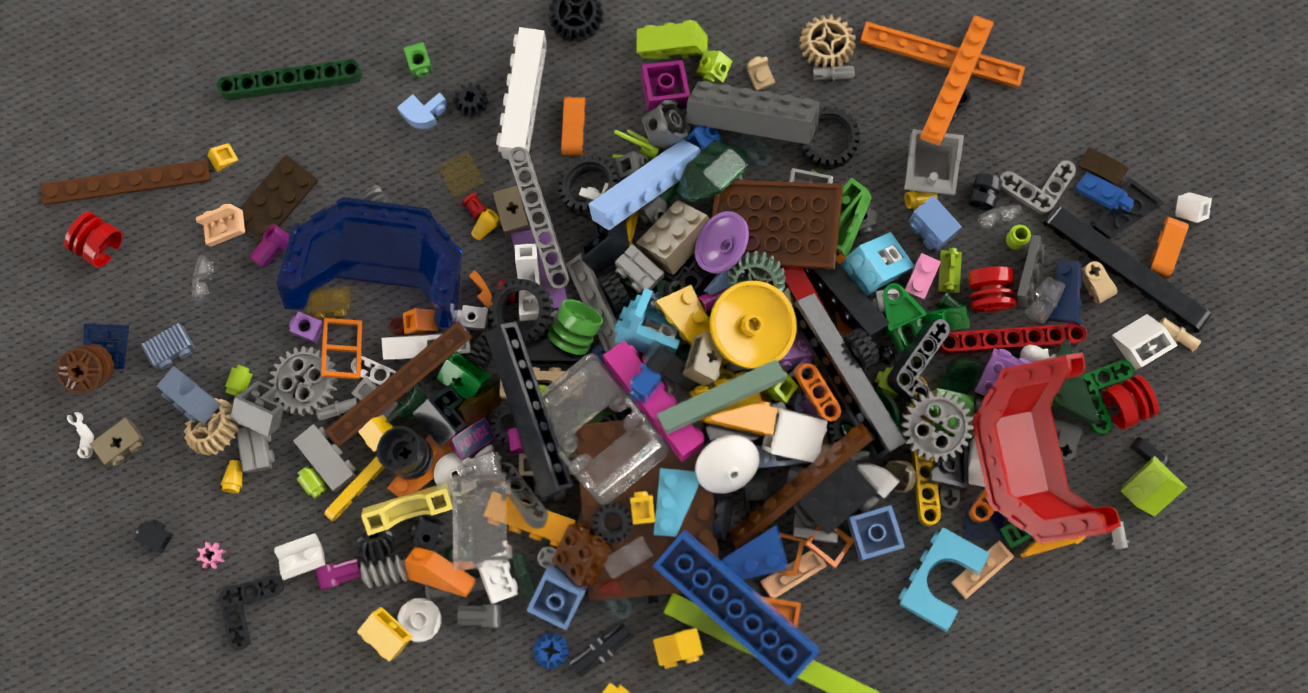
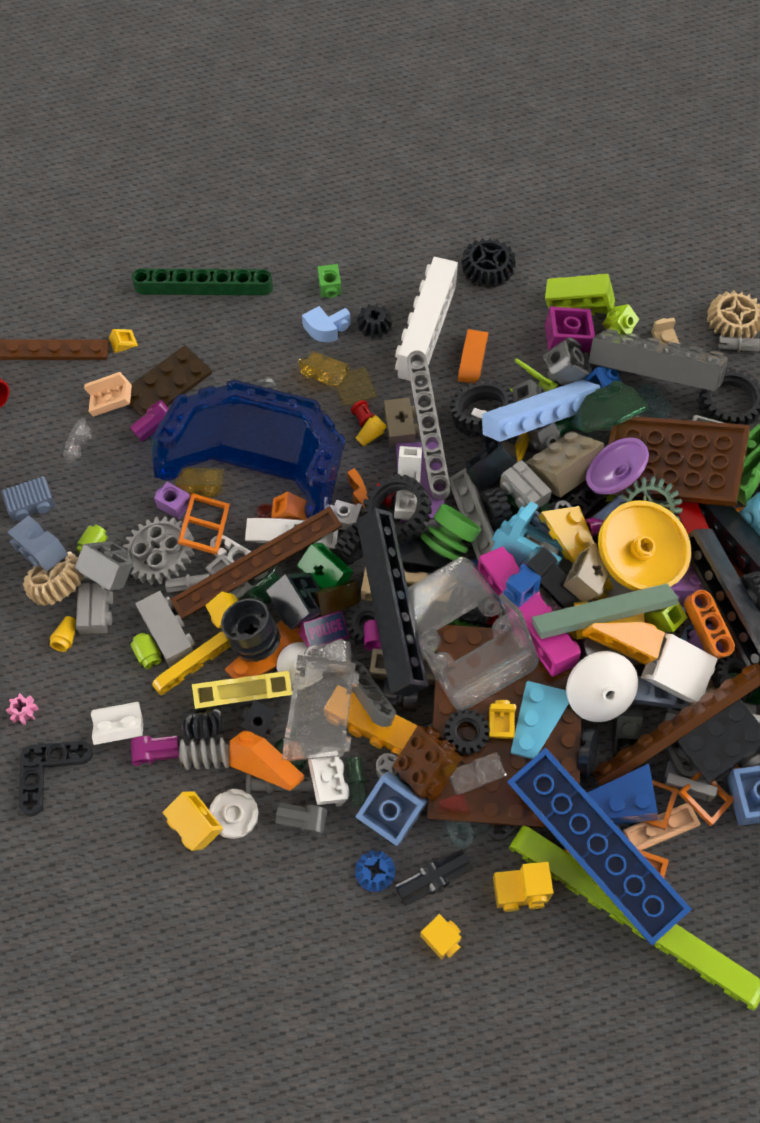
camera: 10 degrees right, 15 degrees down
(428, 161) = (323, 368): none -> clear yellow bracket

